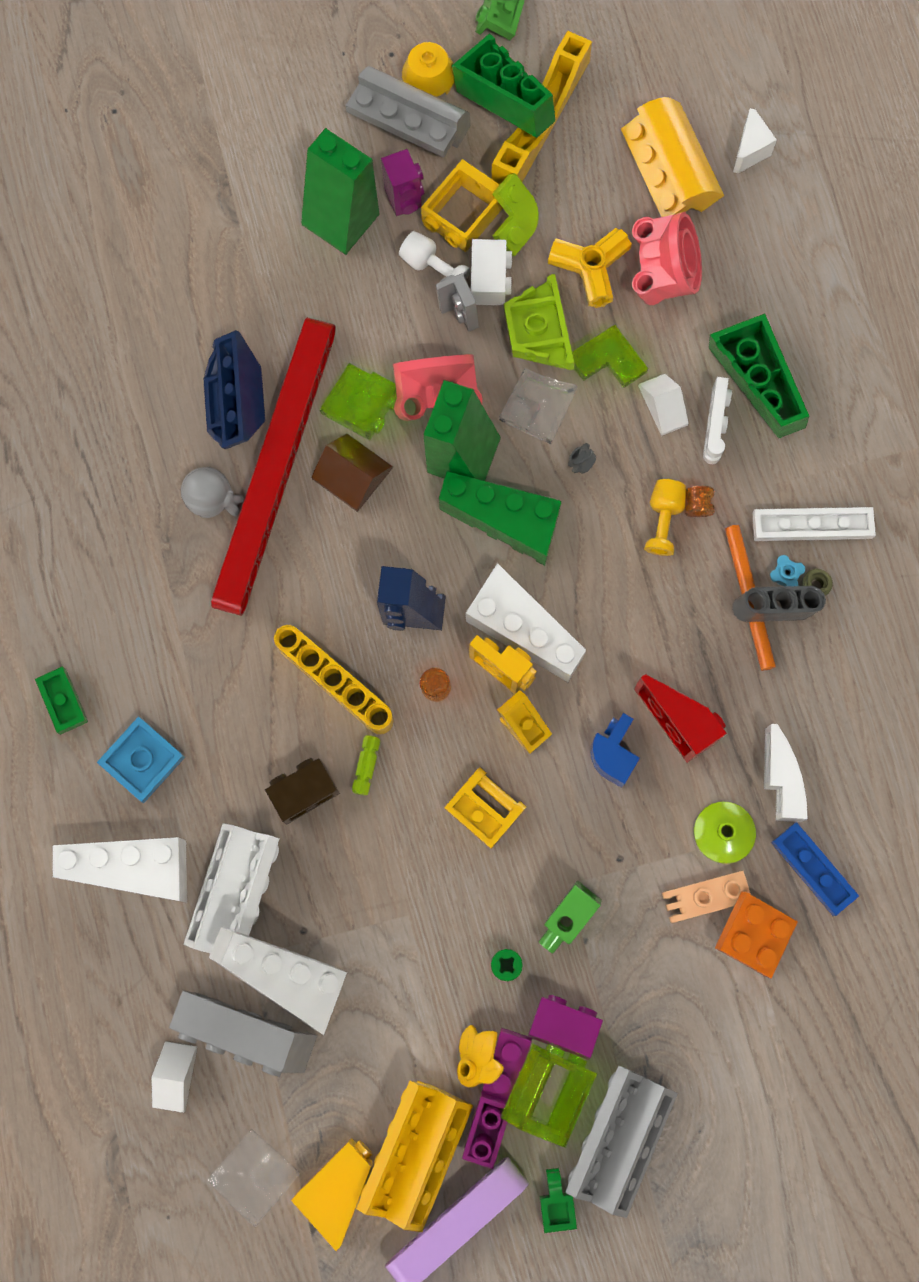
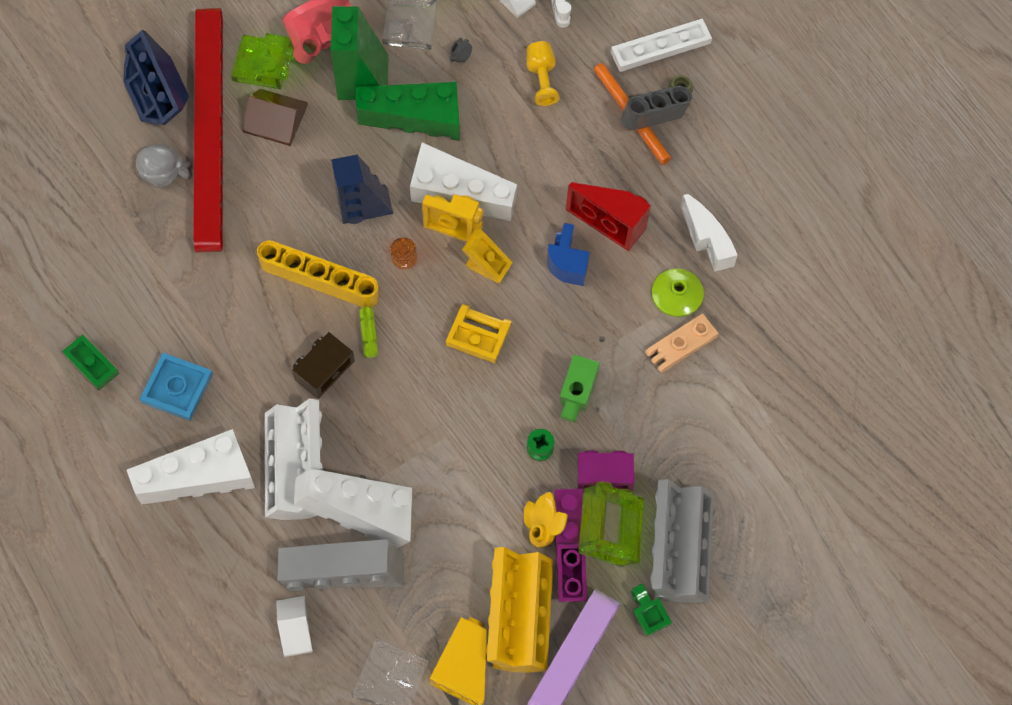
camera: 25 degrees left, 10 degrees down
(699, 501) = (566, 54): clear orange wheel -> none
(756, 934) = (730, 356): orange plate -> none
(779, 576) = (650, 80): medium azure plate -> none
(815, 869) = (757, 294): blue plate -> none

